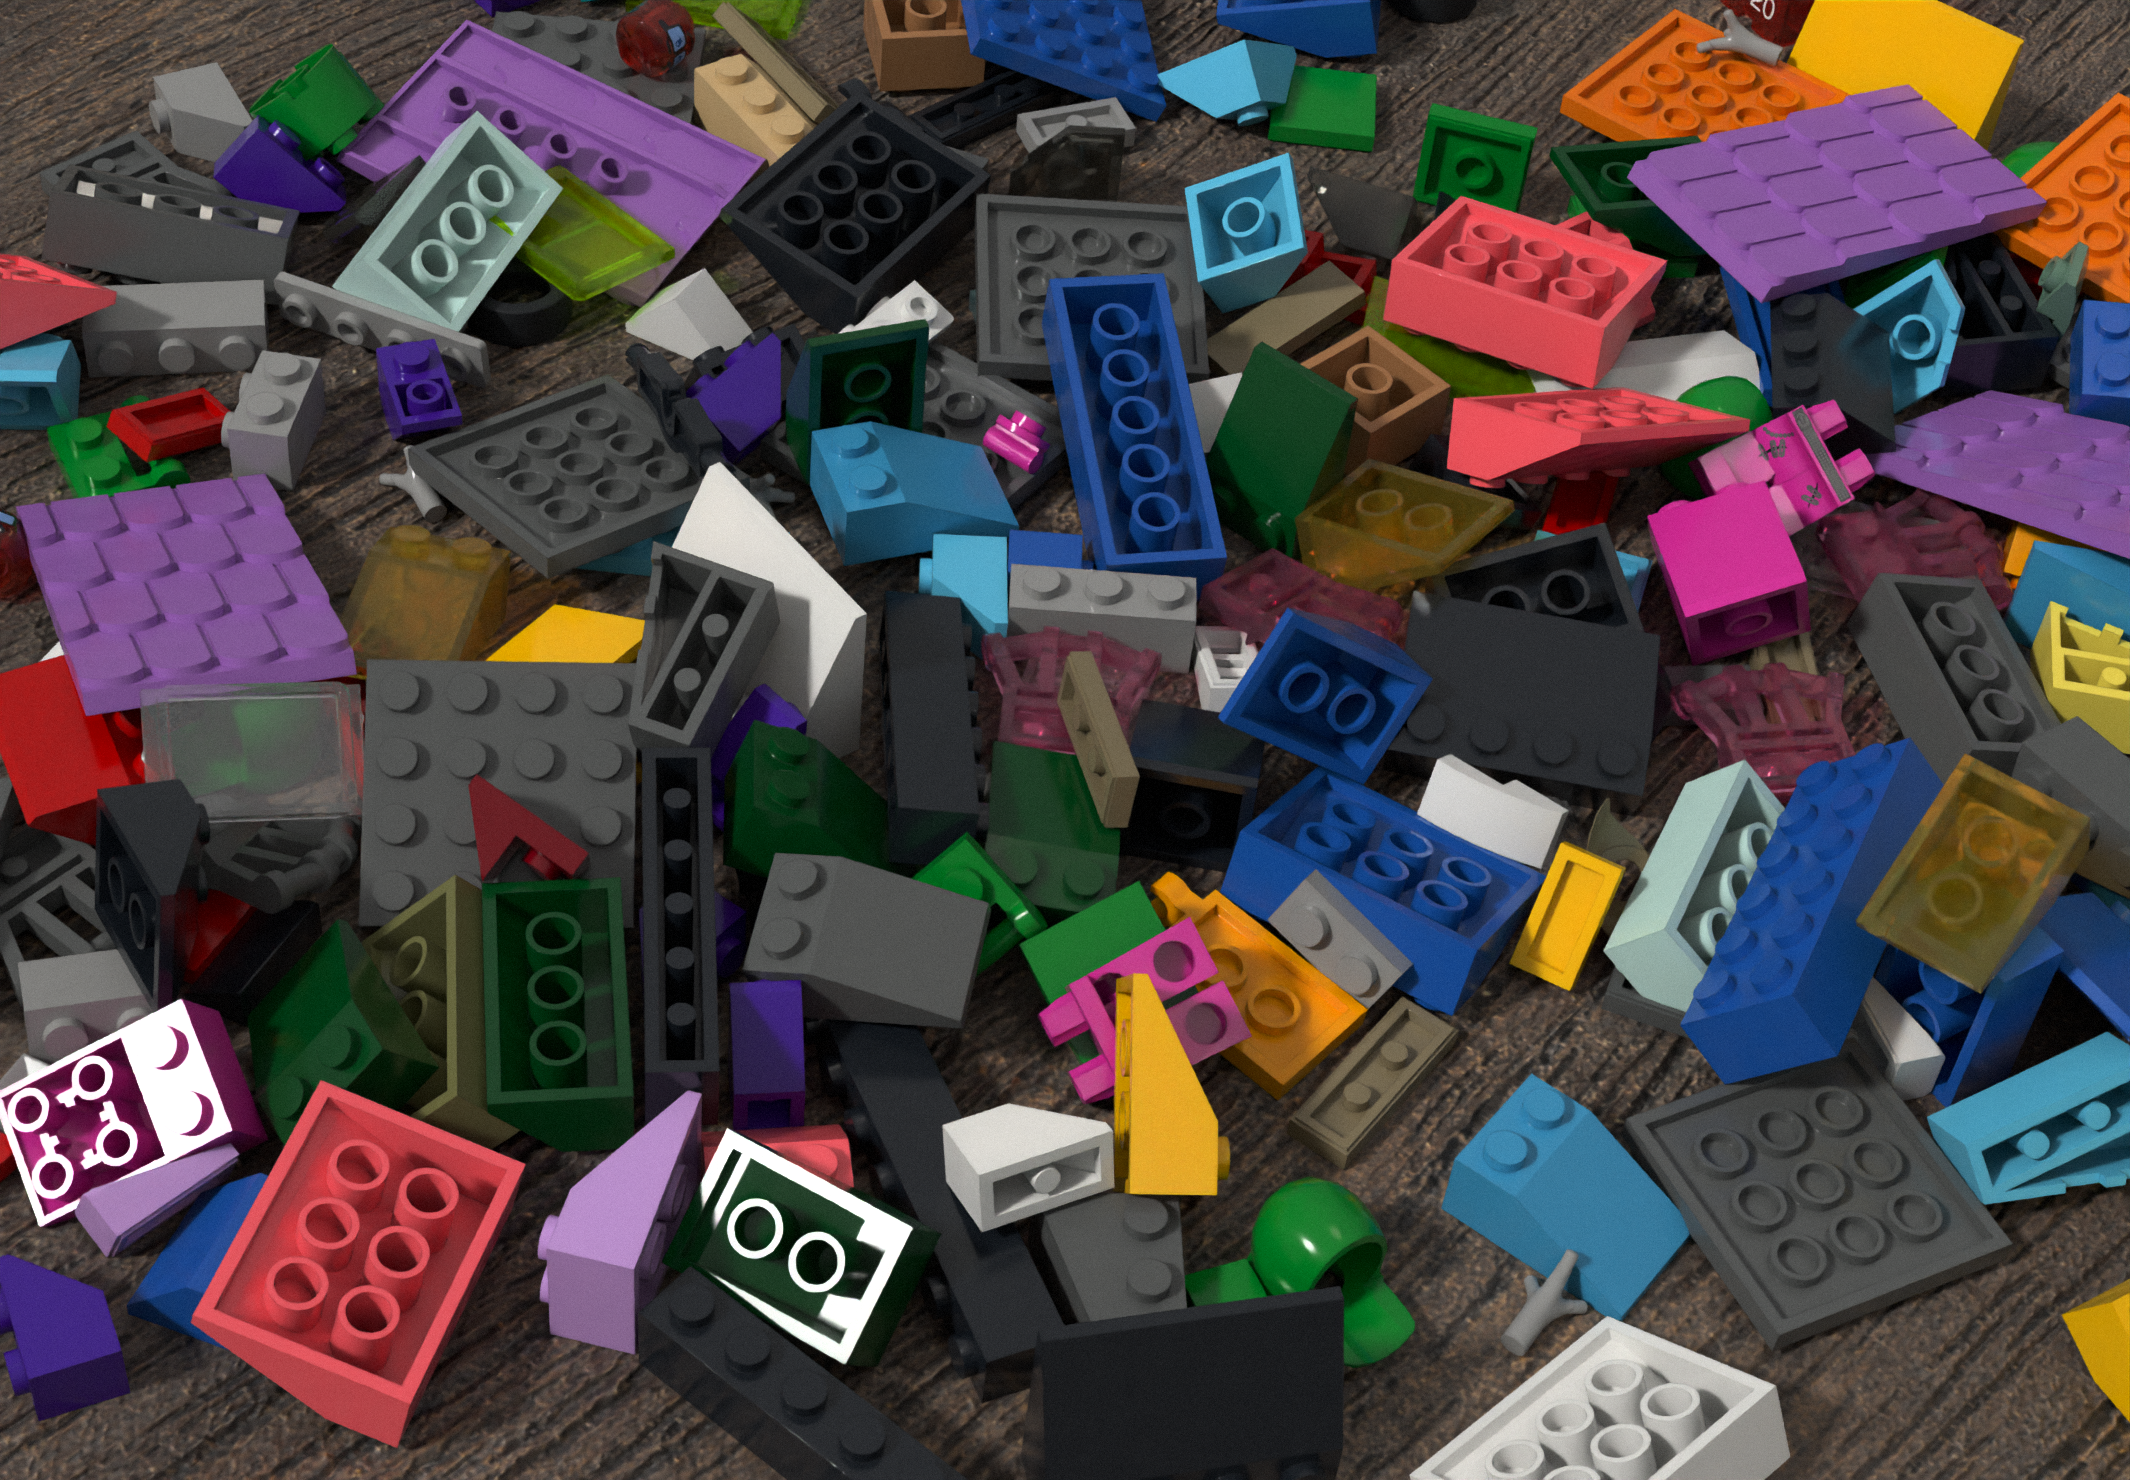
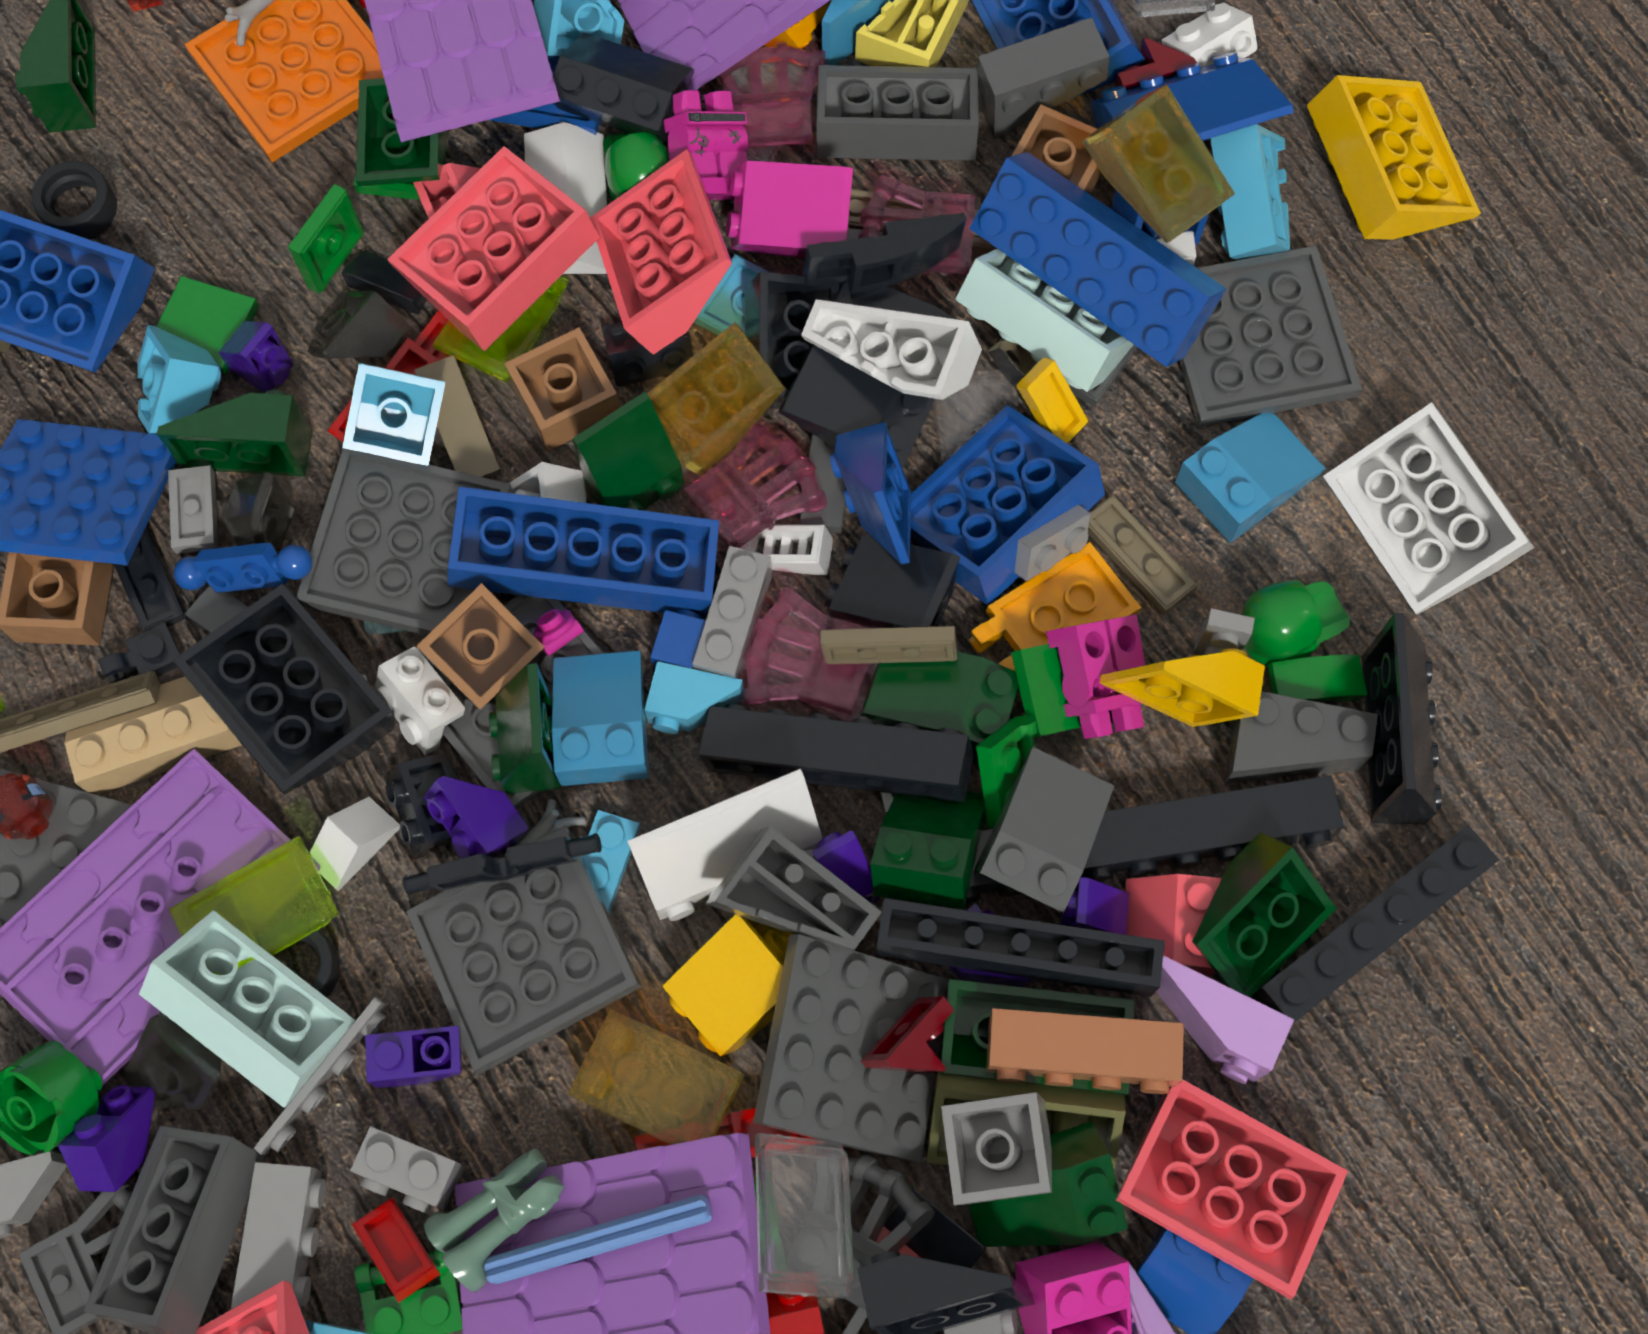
camera: 70 degrees left, 25 degrees up
(199, 556) = (598, 1239): none -> medium blue axle
(217, 472) = (515, 1209): none -> sand green piece
(377, 927) = (998, 1148): none -> light grey slope
(424, 495) = (480, 1079): light grey bar -> none
(540, 1021) = (1085, 1049): none -> nougat brick
(977, 348) = (480, 646): none -> medium nougat brick
(1005, 154) = (243, 567): none -> blue plate
(1025, 1162) = (1226, 775): white slope -> none
(1179, 127) = (243, 436): none -> dark green slope
(1257, 1159) = (1223, 631): none -> light grey plate
(1297, 127) = (257, 355): none -> dark purple slope
(1492, 815) = (972, 414): white slope -> none
(1542, 1306) = (1316, 509): light grey bar -> none
(1550, 683) = (899, 348): none -> white wedge
(1706, 671) = (884, 260): none -> black slope

